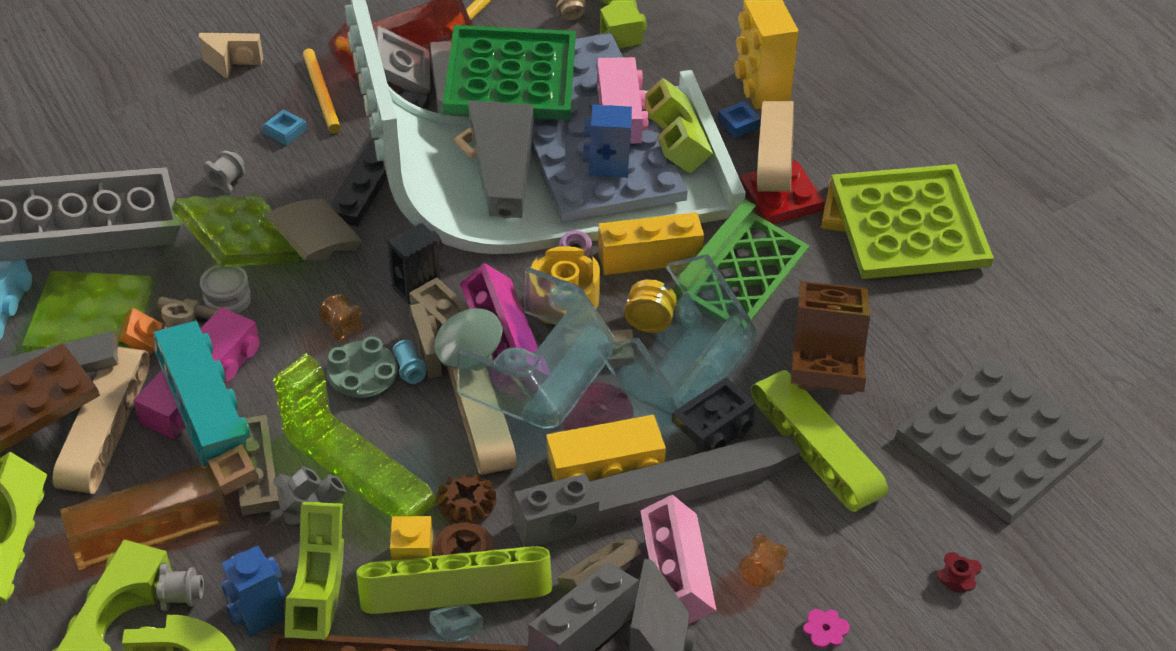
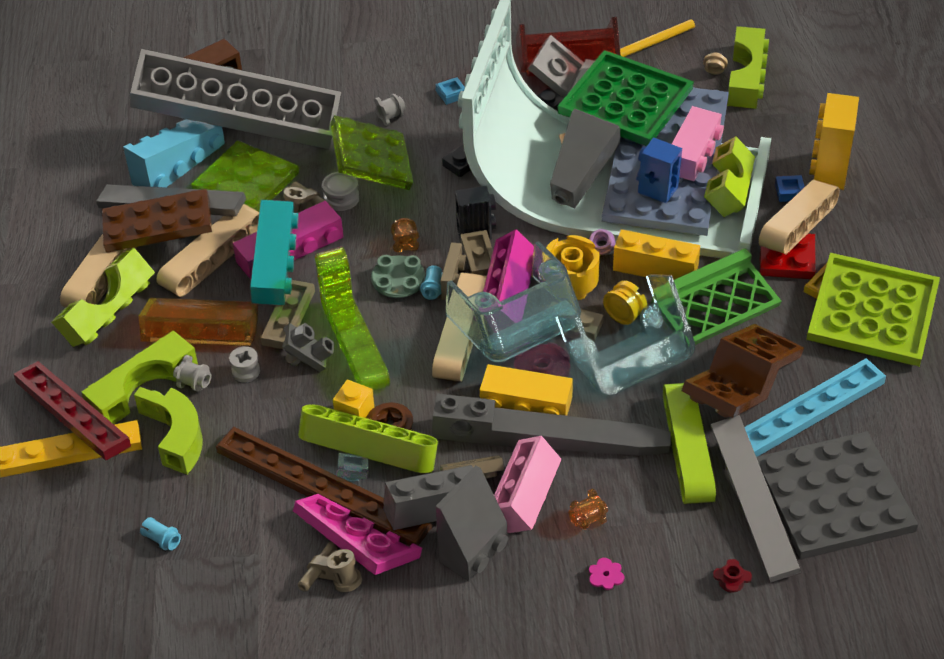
camera: 30 degrees right, 0 degrees up
(139, 331) = (268, 192): orange plate -> none
(225, 49) = (444, 22): tan slope -> none
(233, 469) = (267, 311): medium nougat plate -> none
(235, 534) = (244, 364): none -> light grey wheel
(253, 590) = (231, 393): blue brick -> none
(314, 229) = (422, 168): dark tan slope -> none
(318, 578) = (283, 402): lime arch -> none
(463, 510) = (402, 392): reddish brown gear -> none
(471, 330) = (475, 275): sand green dish -> none
(716, 416) = (621, 397): black bracket -> none
(914, 356) = (813, 406): none -> medium azure plate
(930, 475) = (755, 499): none -> light grey tile

